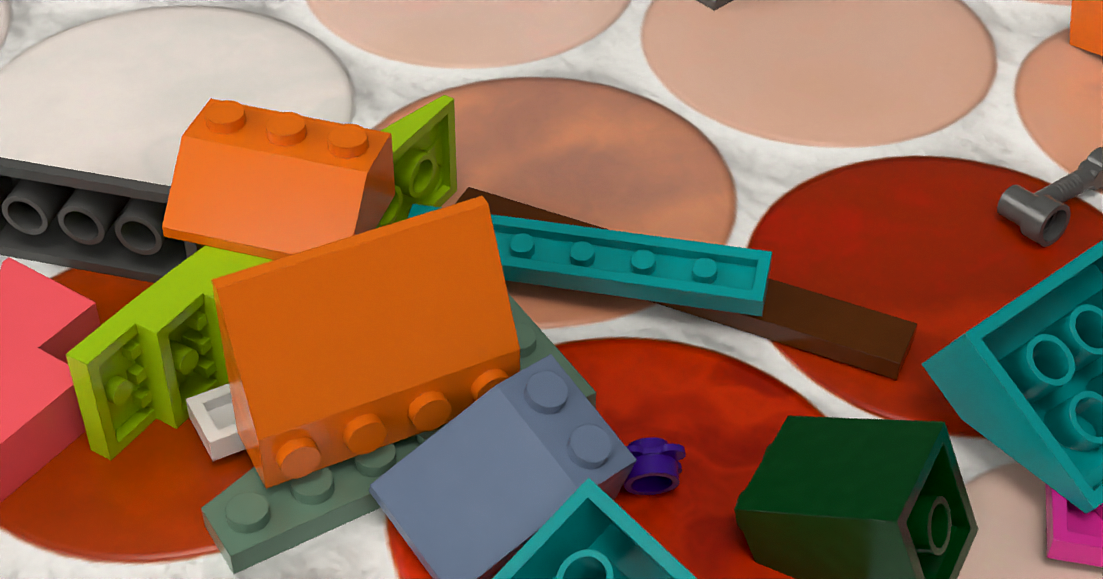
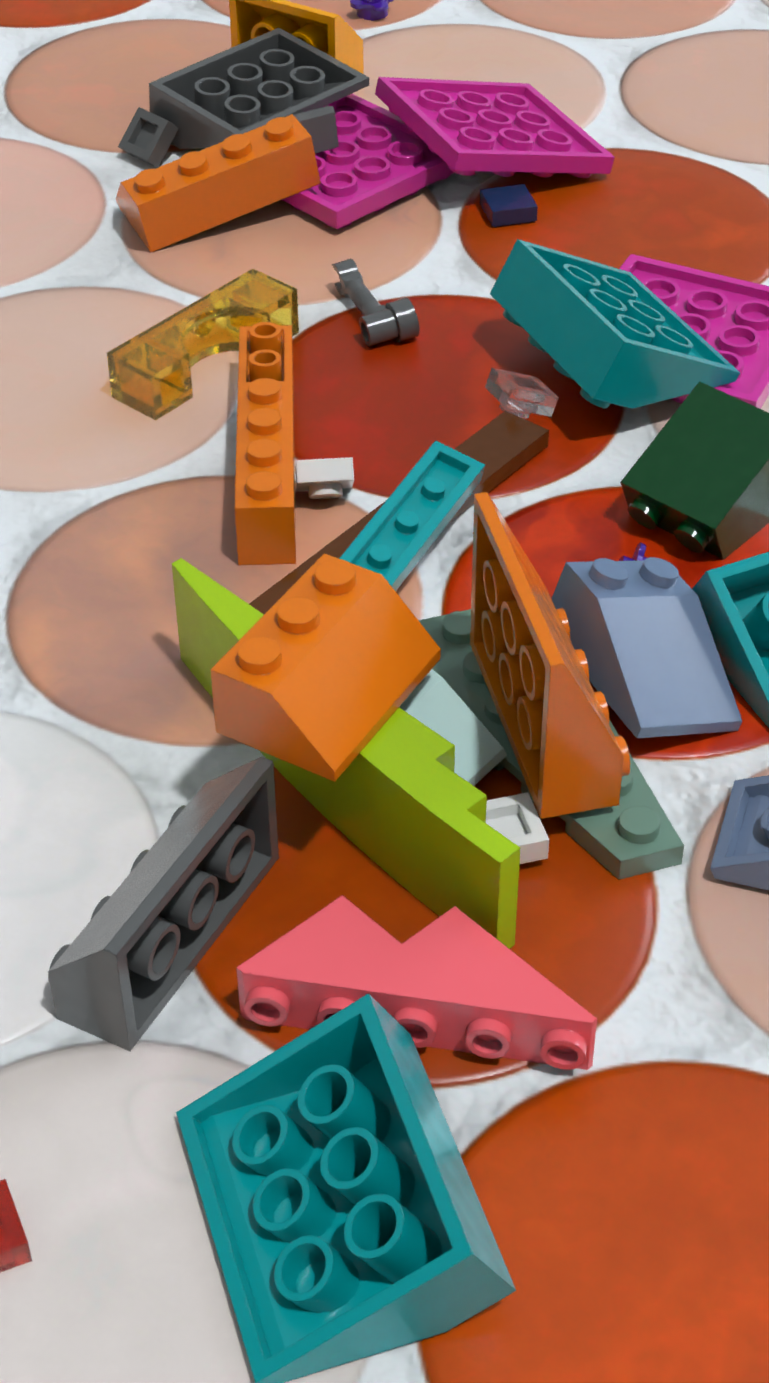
camera: 75 degrees left, 0 degrees up
(724, 210) = (324, 476): none -> white plate
(747, 159) = (265, 447): none -> orange slope
(947, 319) = (521, 393): none -> clear plate
(964, 106) = (155, 366): none -> clear yellow arch

